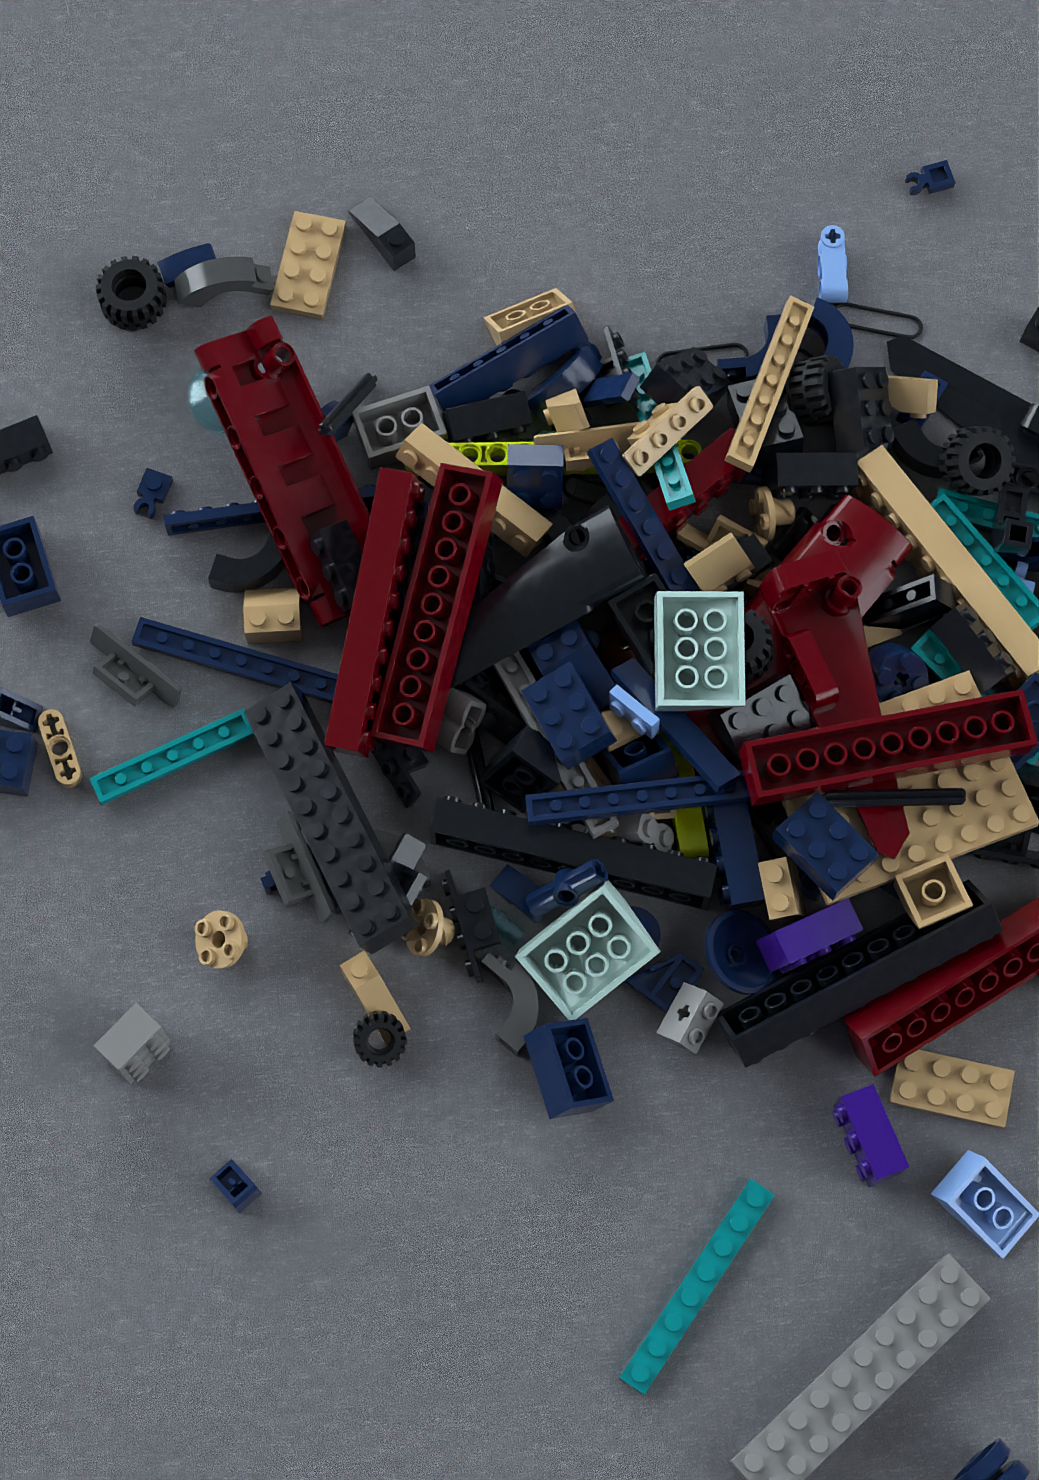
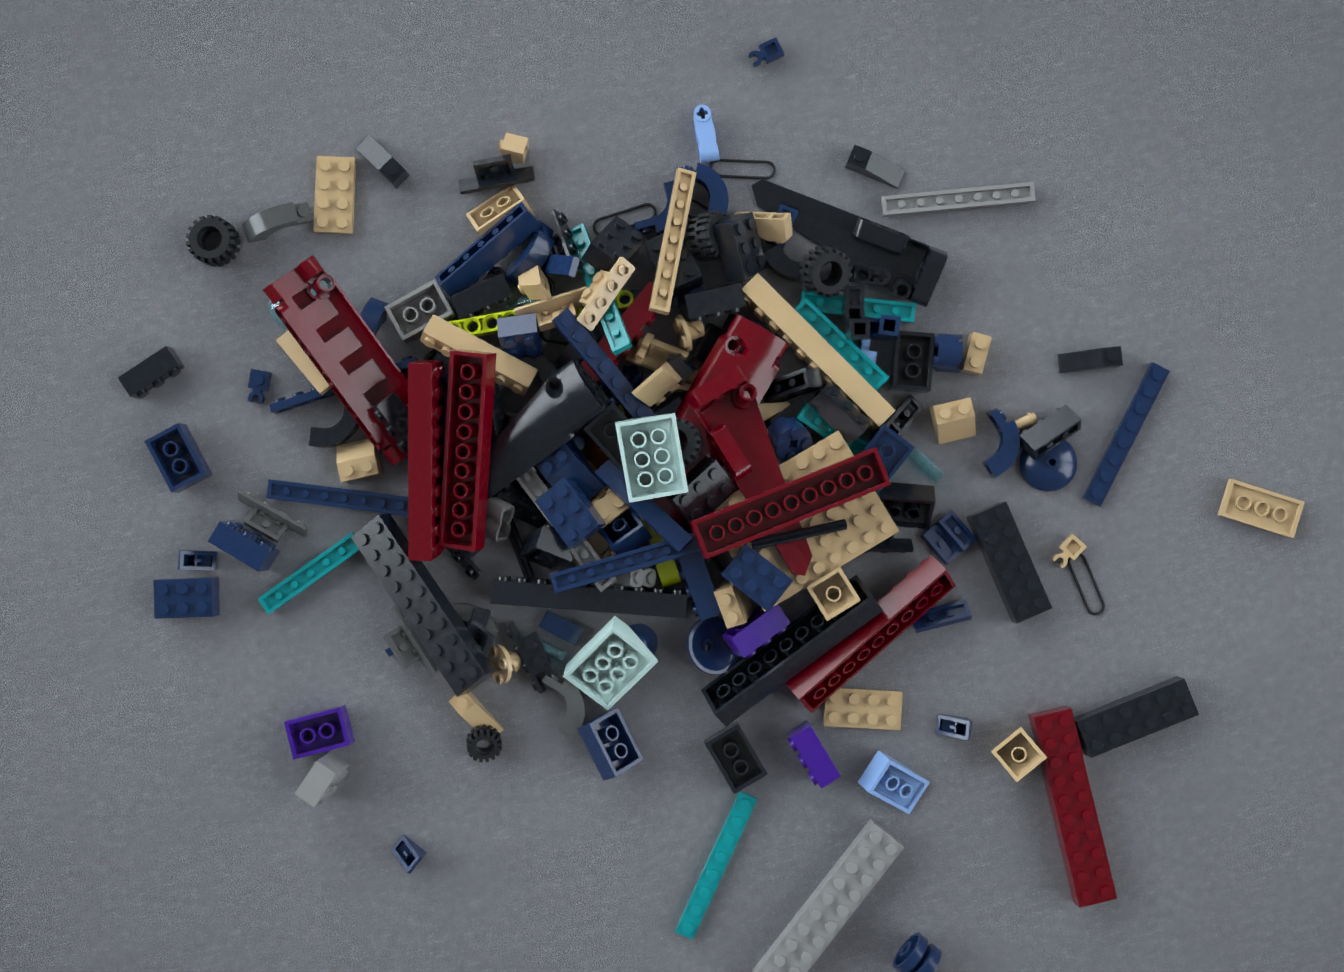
camera: 10 degrees left, 15 degrees up
(46, 733) = (242, 581): tan beam -> none
(88, 697) = (244, 545): none -> dark blue brick
(141, 976) = (319, 732): none -> dark purple brick
(177, 263) = (248, 208): dark blue slope -> none
(220, 939) = (367, 695): tan plate -> none
(224, 466) = (302, 361): none -> tan tile
(347, 405) = (380, 305): black axle -> none
(535, 269) = (495, 173): none -> black bracket
(566, 241) = (514, 145): none -> tan brick
(567, 887) = (589, 626): dark blue piece -> none
(640, 717) = (619, 507): light blue plate -> none
(664, 979) = (667, 670): dark blue wing -> none
(690, 1018) = (685, 695): light grey brick -> none
(704, 525) = (643, 346): none -> tan plate
(752, 1122) = (735, 757): none -> black brick

